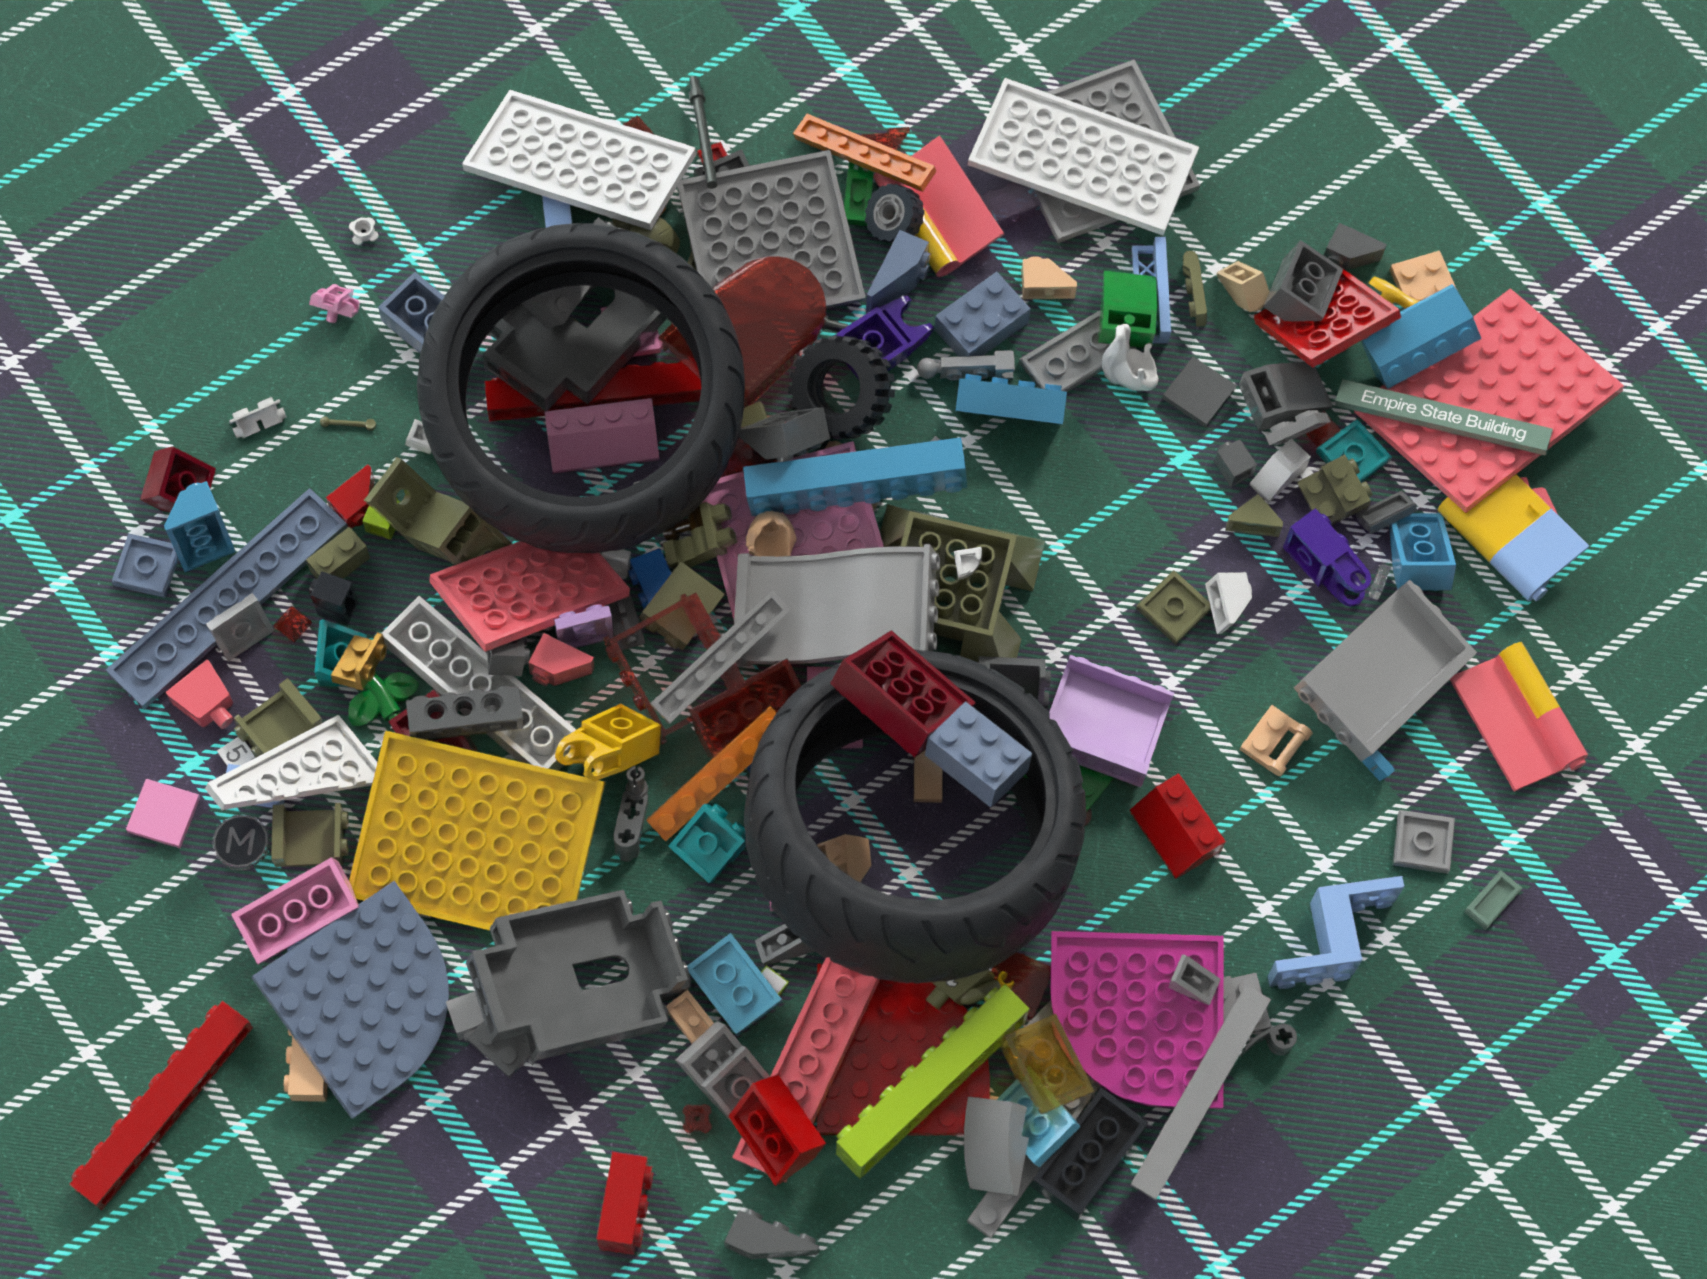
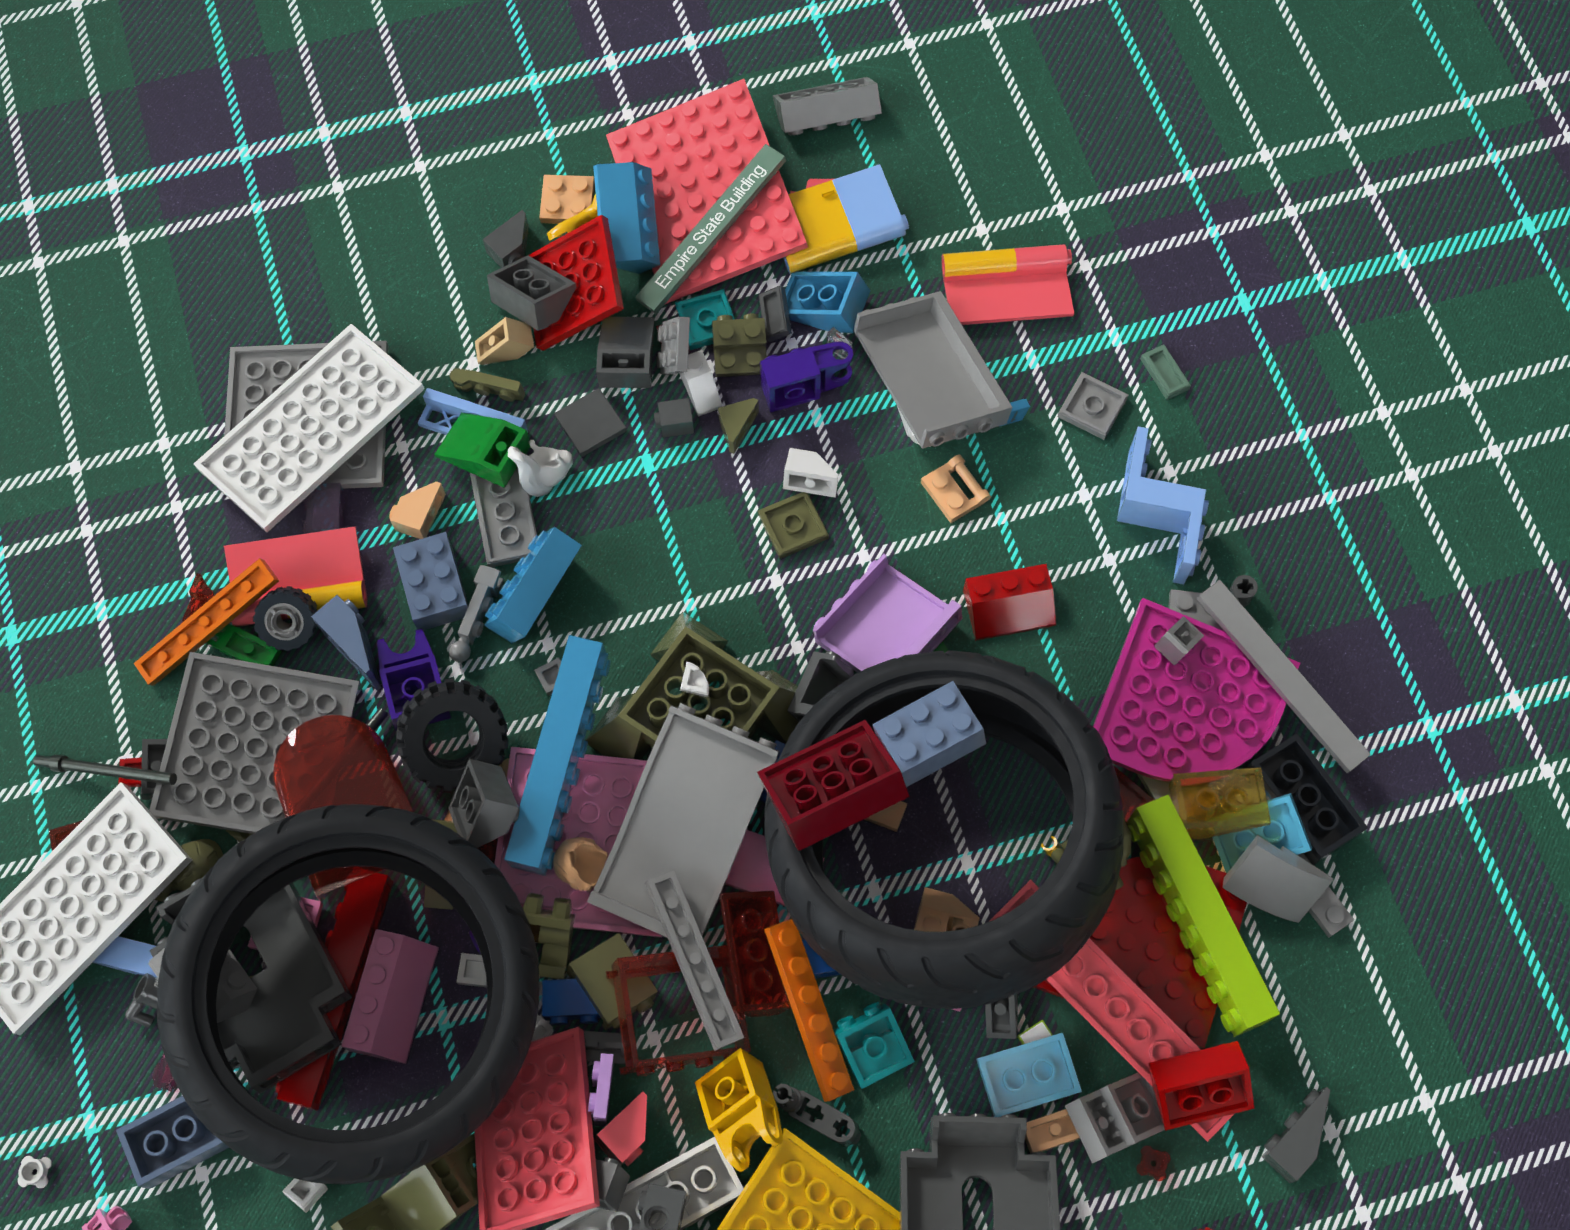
camera: 65 degrees left, 0 degrees up
(1643, 477) = (827, 105): none -> light grey slope

